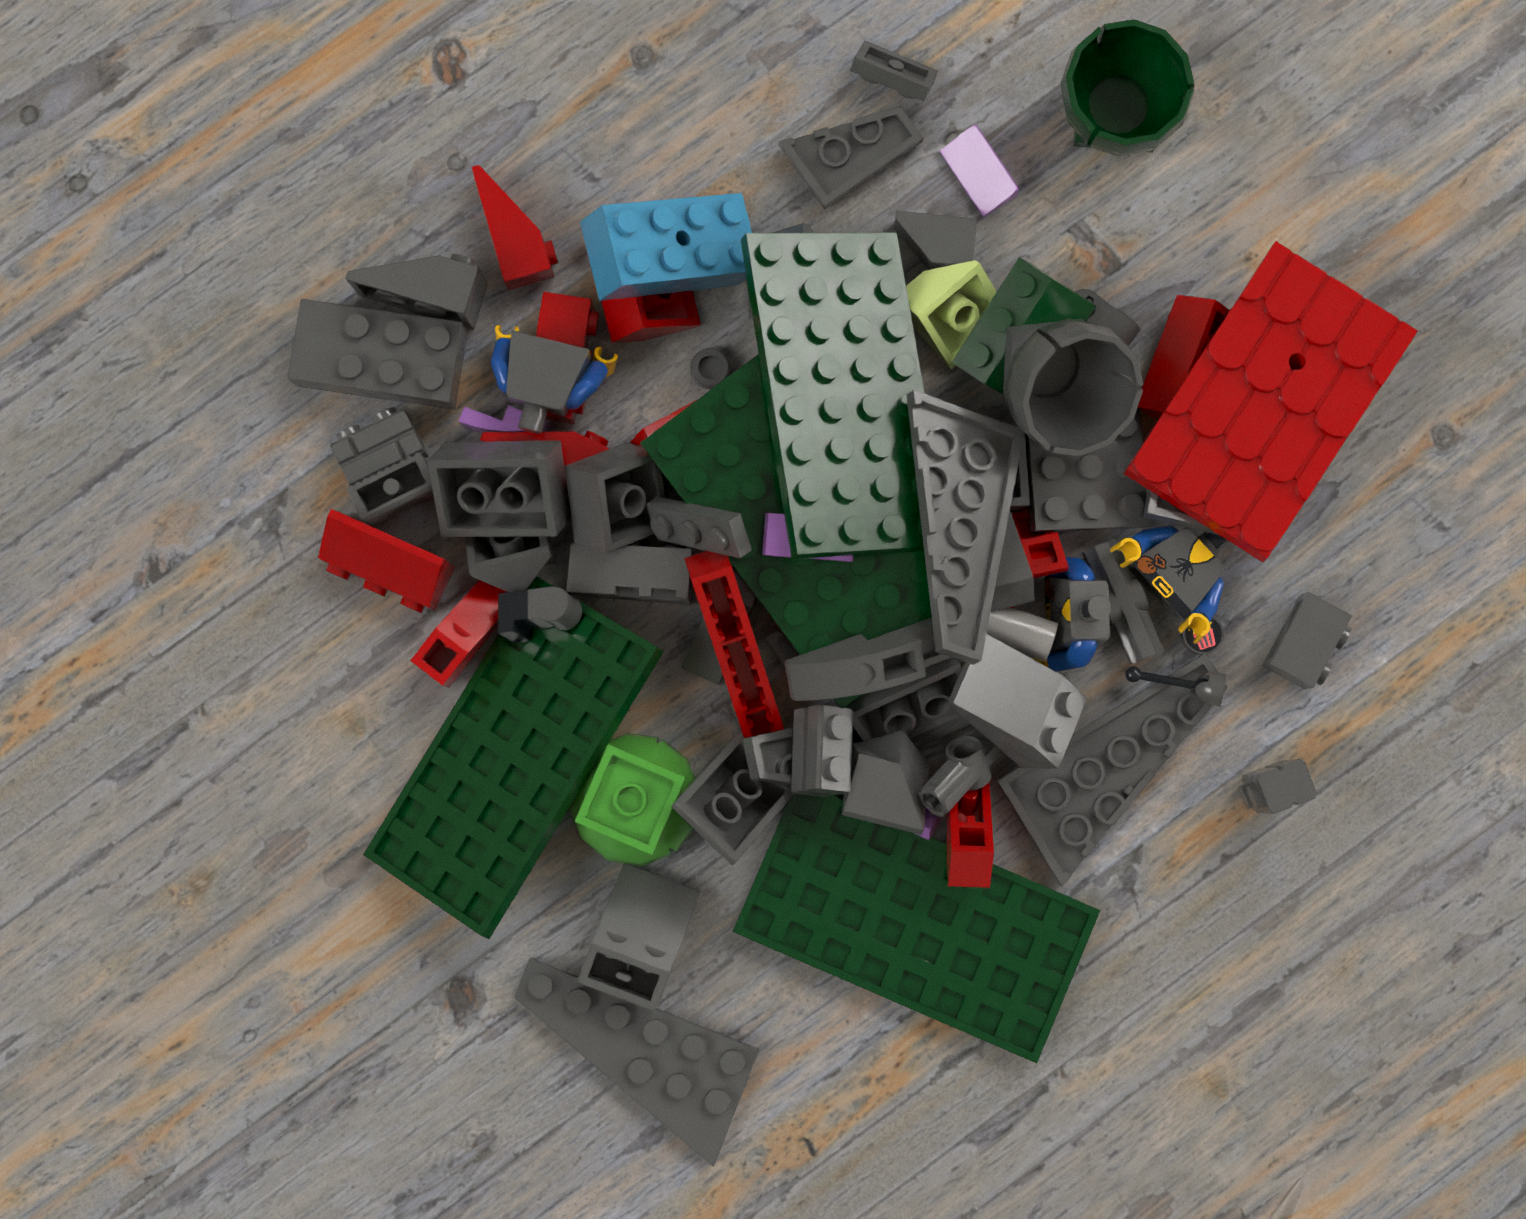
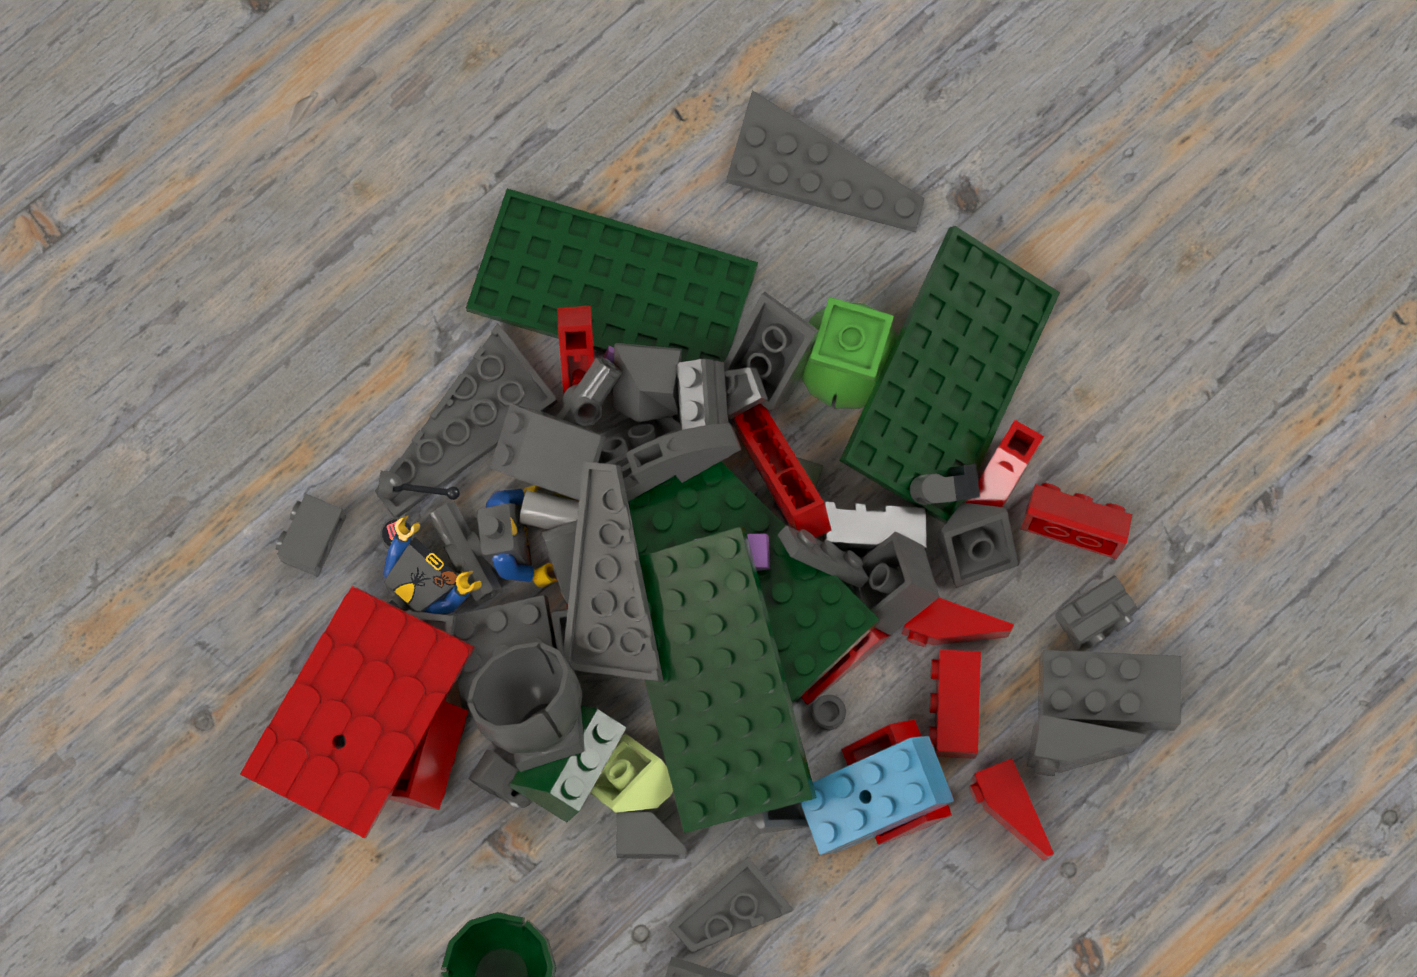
camera: 170 degrees right, 10 degrees down
(392, 490) = (1077, 577): dark grey brick -> none
(482, 423) = (1007, 642): medium lavender slope -> none
(500, 488) = (990, 581): dark grey brick -> none
(545, 375) = (966, 678): dark grey torso -> none
(638, 937) = (831, 248): dark grey slope -> none
(979, 171) = (617, 905): slope -> none
(1041, 548) = (540, 579): red slope -> none
(1277, 787) = (331, 411): dark grey brick -> none

